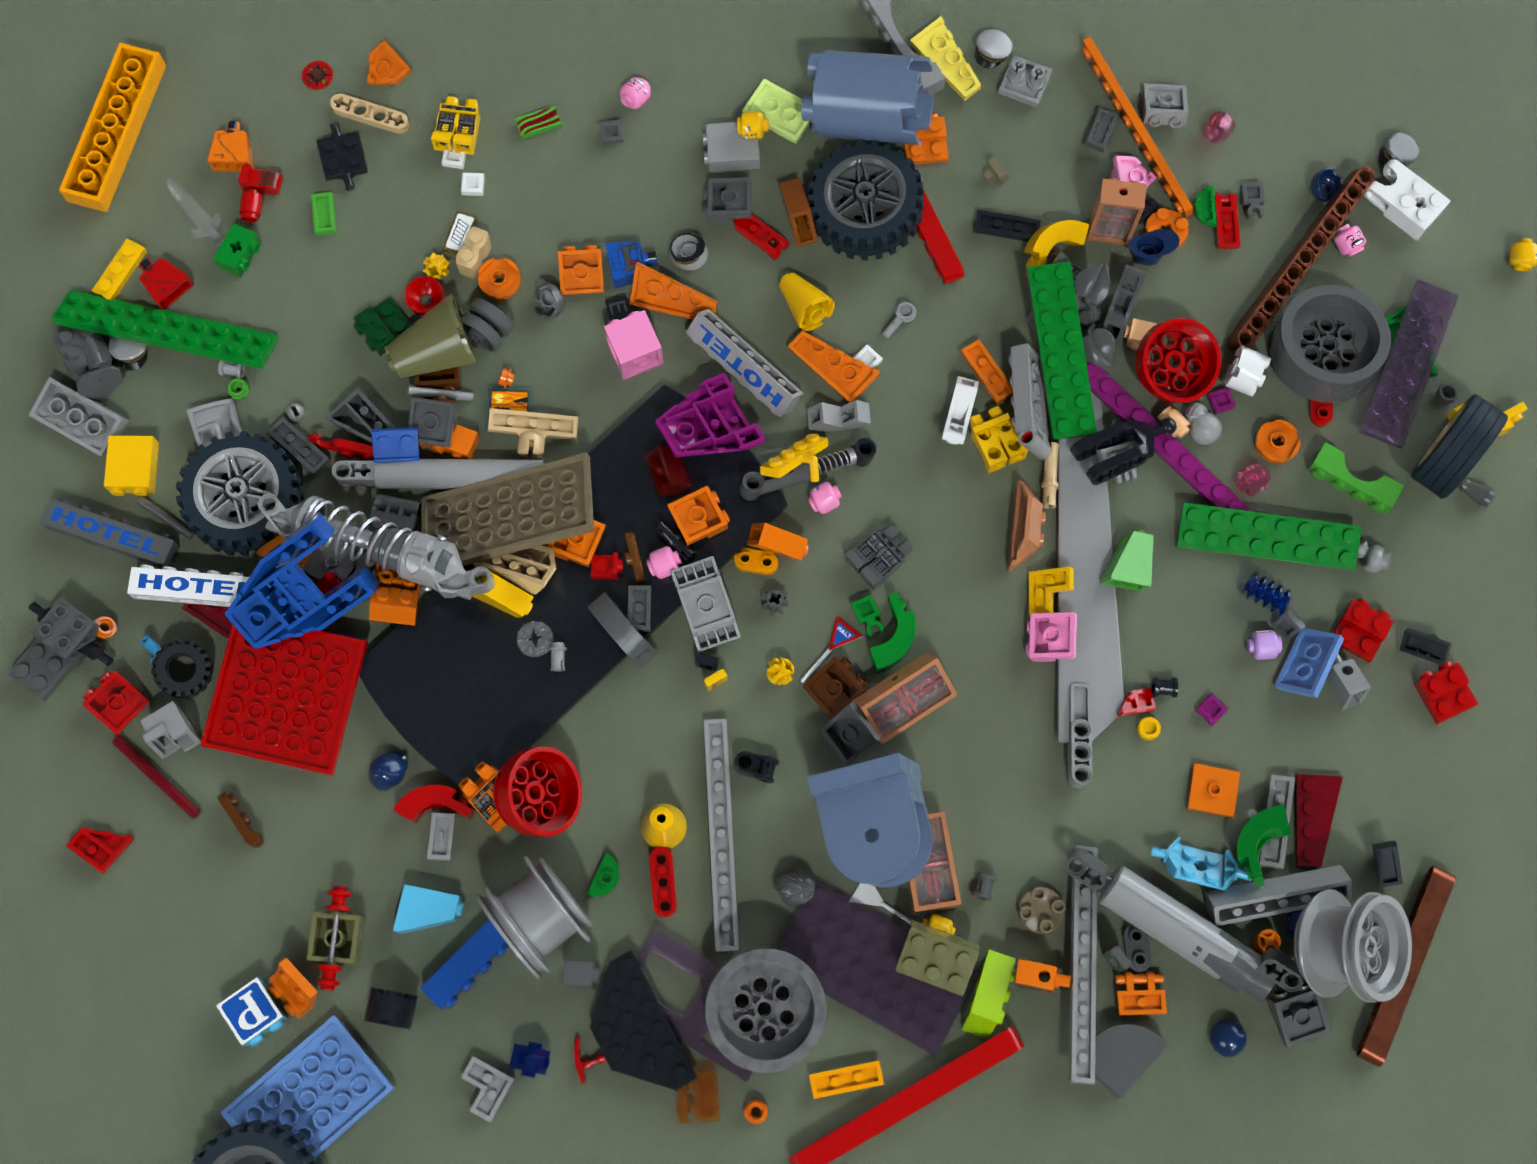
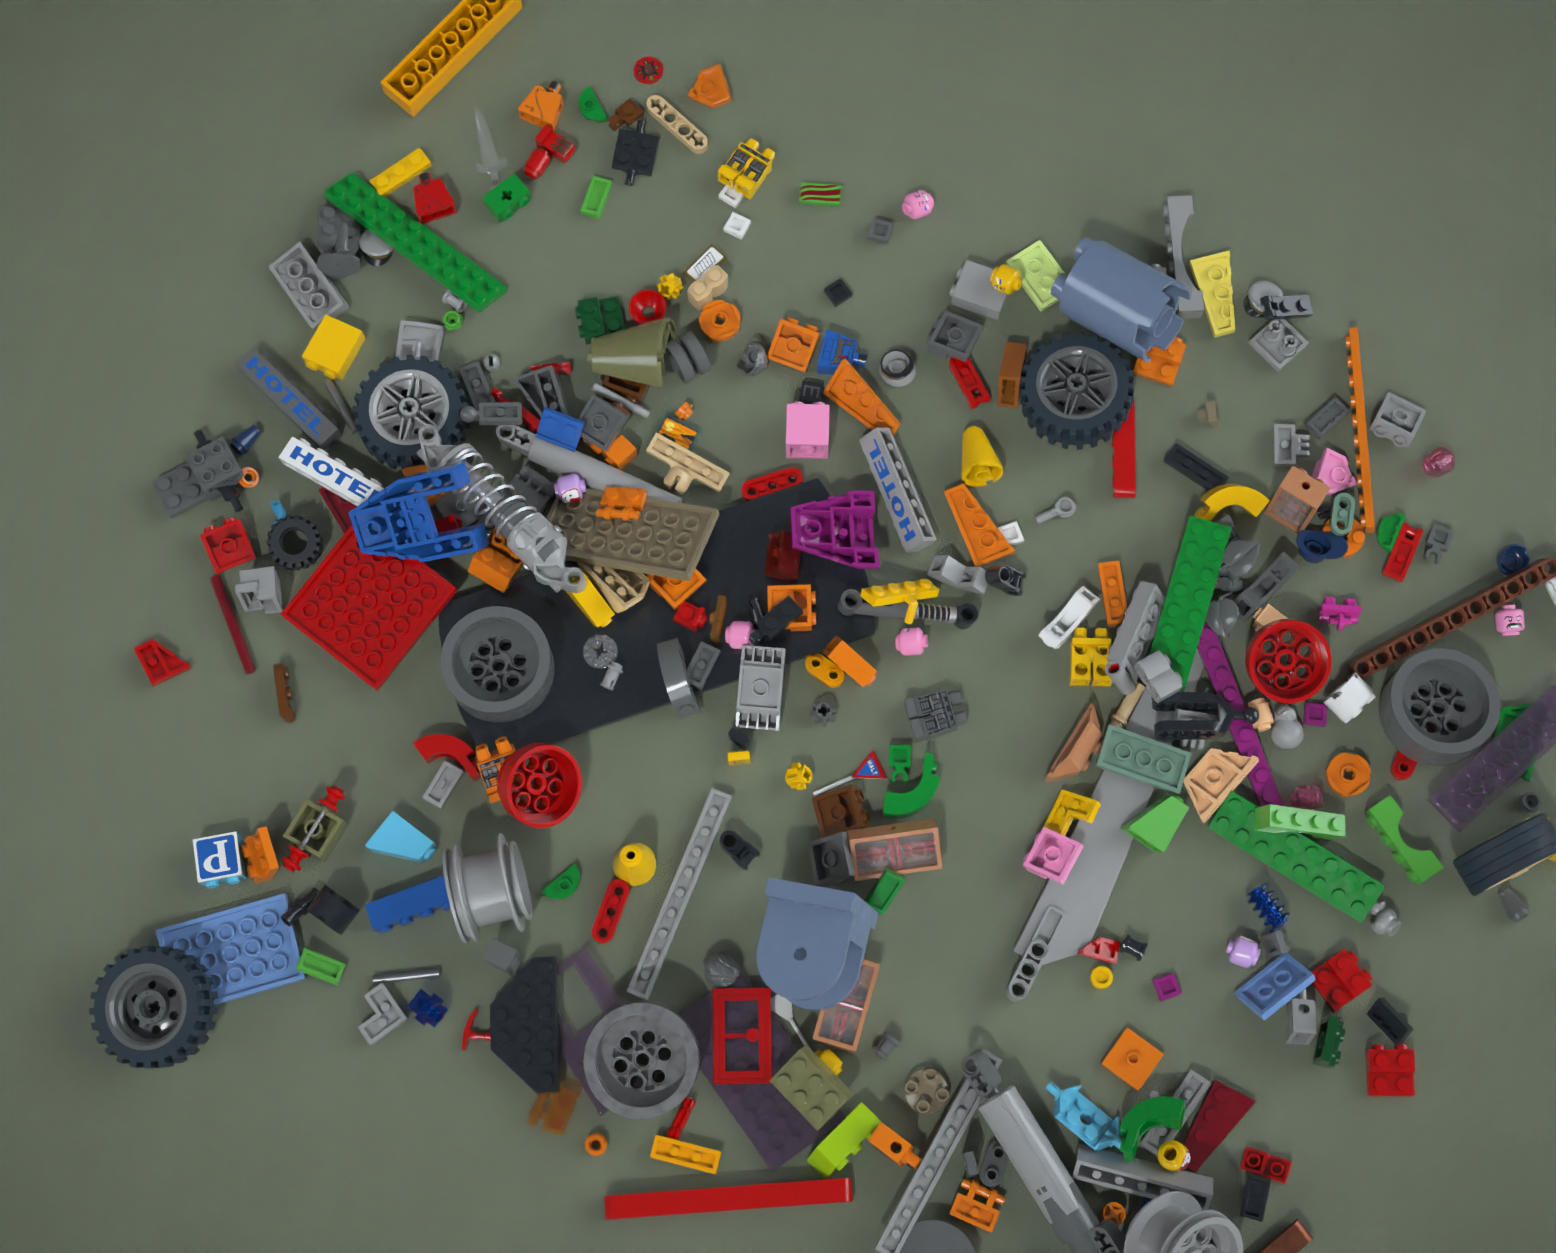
camera: 30 degrees right, 0 degrees up
(83, 594) = (243, 442): none -> dark blue cone
(277, 131) = (590, 106): none -> green plate
(315, 123) = (626, 113): none -> reddish brown plate
(323, 458) = (494, 413): none -> dark grey plate
(356, 1022) = (299, 908): none -> black pin
(370, 386) = (565, 367): none -> red axle
(387, 770) = (425, 707): dark blue hair -> none
(404, 1069) = (320, 966): none -> bright green tile
(418, 666) = (491, 629): none -> dark grey wheel
(431, 497) = (569, 488): none -> lavender head
(489, 488) = (623, 499): none -> orange plate
(493, 1038) = (406, 976): none -> flat silver bar
(598, 206) = (838, 292): none -> black tile
(627, 402) = (778, 478): none -> red plate
(692, 533) = (776, 620): none -> black plate
(825, 1049) = (681, 1118): none -> red axle
(856, 935) = (763, 996): none -> red door
(884, 401) = (1005, 579): none -> black piece
(914, 739) = (884, 890): none -> green tile
(1017, 45) = (1286, 306): none -> plate
(1069, 427) = (1158, 676): none -> light grey brick
(1078, 169) = (1288, 445): none -> light grey hinge
(1090, 510) = (1143, 759): none -> sand green plate
(1160, 209) = (1342, 515): none -> sand green plate
(1163, 499) = (1215, 778): none -> light nougat wing
(1198, 301) = (1339, 614): none -> dark pink hips
(1249, 504) = (1289, 819): none -> bright green arch
(1289, 861) = (1173, 1156): none -> yellow head
(1379, 830) = (1266, 1165): none -> red slope
(1381, 695) = (1328, 1042): none -> dark green plate

